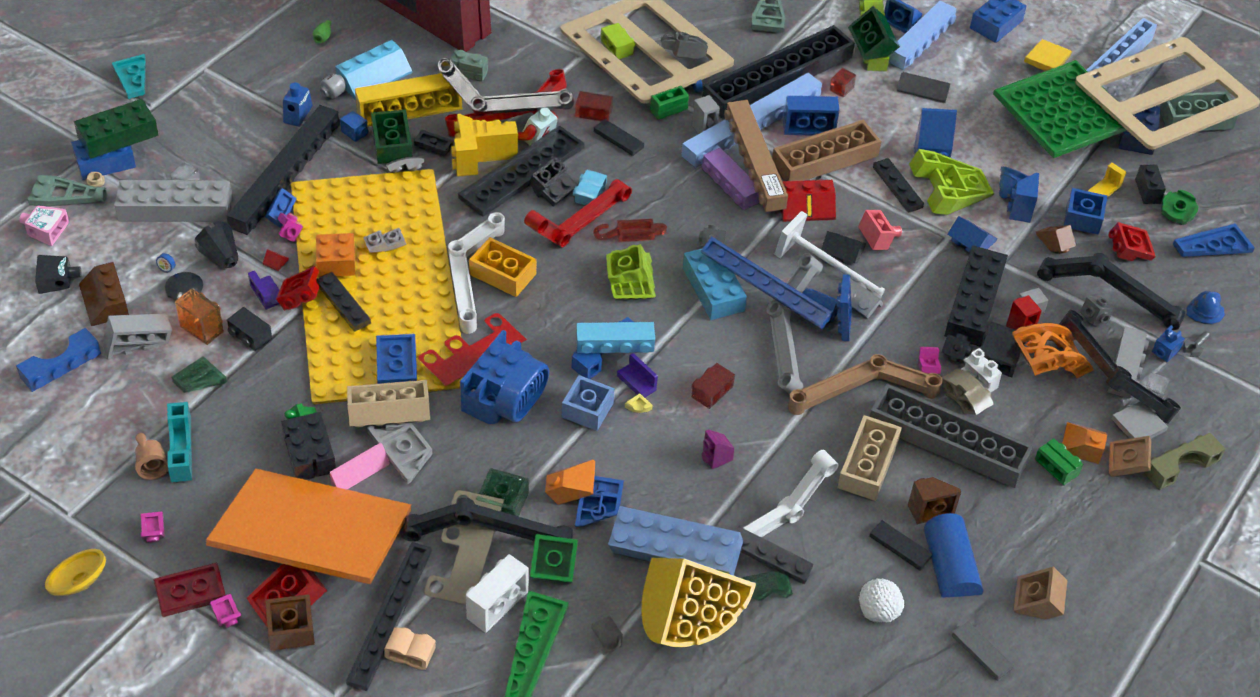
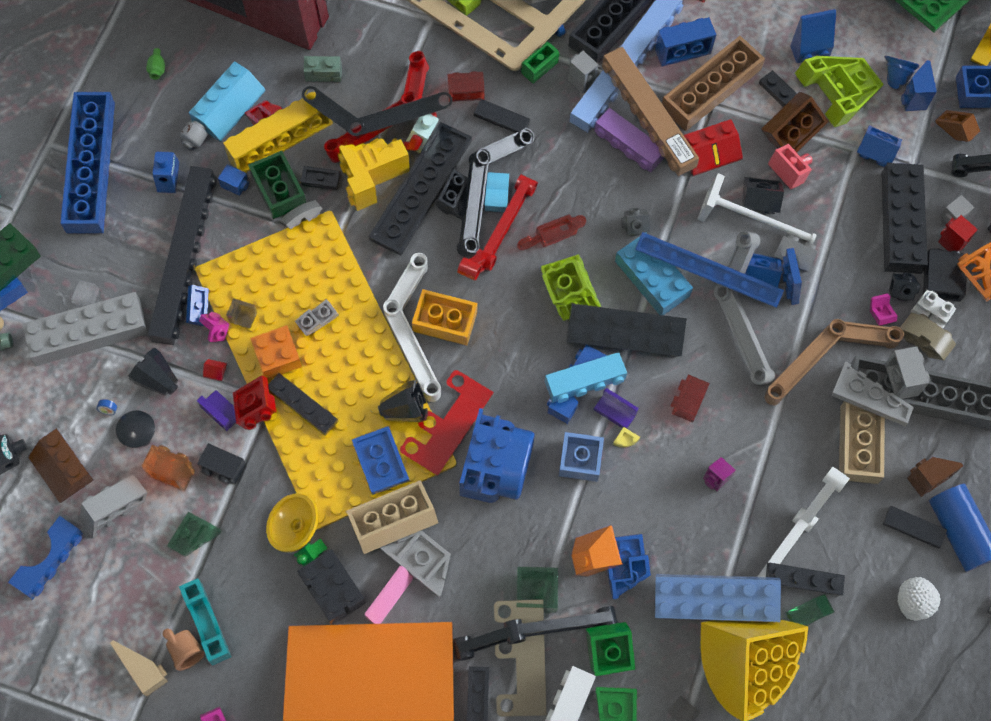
camera: 15 degrees left, 20 degrees up
(105, 465) = (143, 671): none -> tan slope
(230, 84) = (88, 162): none -> blue brick
(294, 386) = (292, 522): none -> yellow dish
(317, 220) = (241, 313): none -> clear smoke panel
(437, 319) = (405, 404): none -> black cone
(581, 158) = (477, 183): none -> piece
(671, 313) = (626, 329): none -> black brick
(883, 413) = (860, 391): none -> light grey wing
(896, 197) = (795, 123): none -> reddish brown slope
(929, 401) = (907, 372): none -> light grey brick

